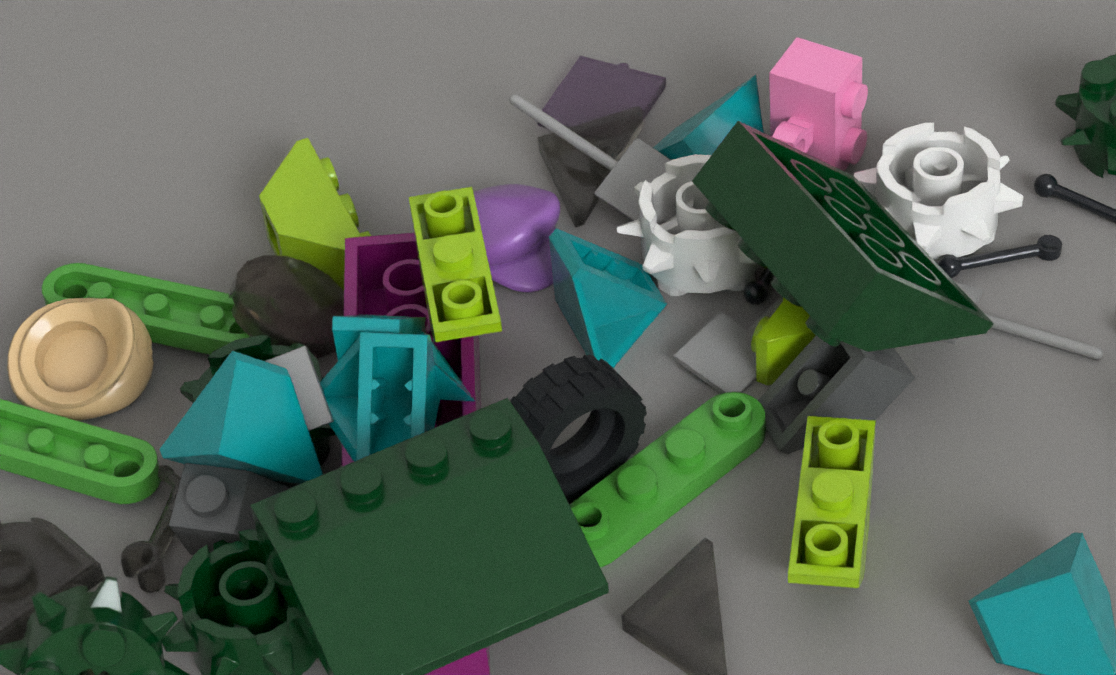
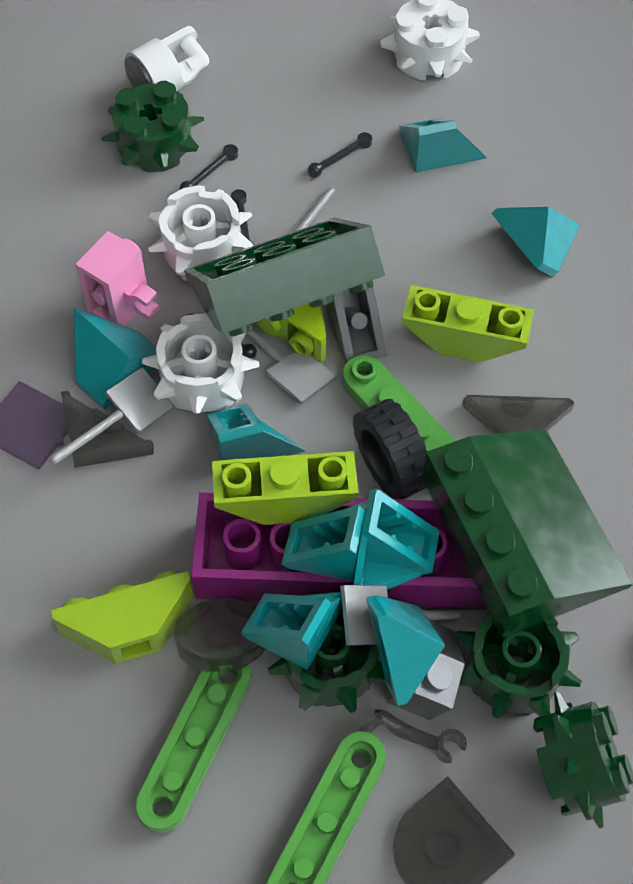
camera: 90 degrees left, 15 degrees up
(80, 358) = (244, 793): tan piece -> none
(261, 324) = (293, 624): none -> teal slope
(517, 233) = (159, 494): medium lavender piece -> none

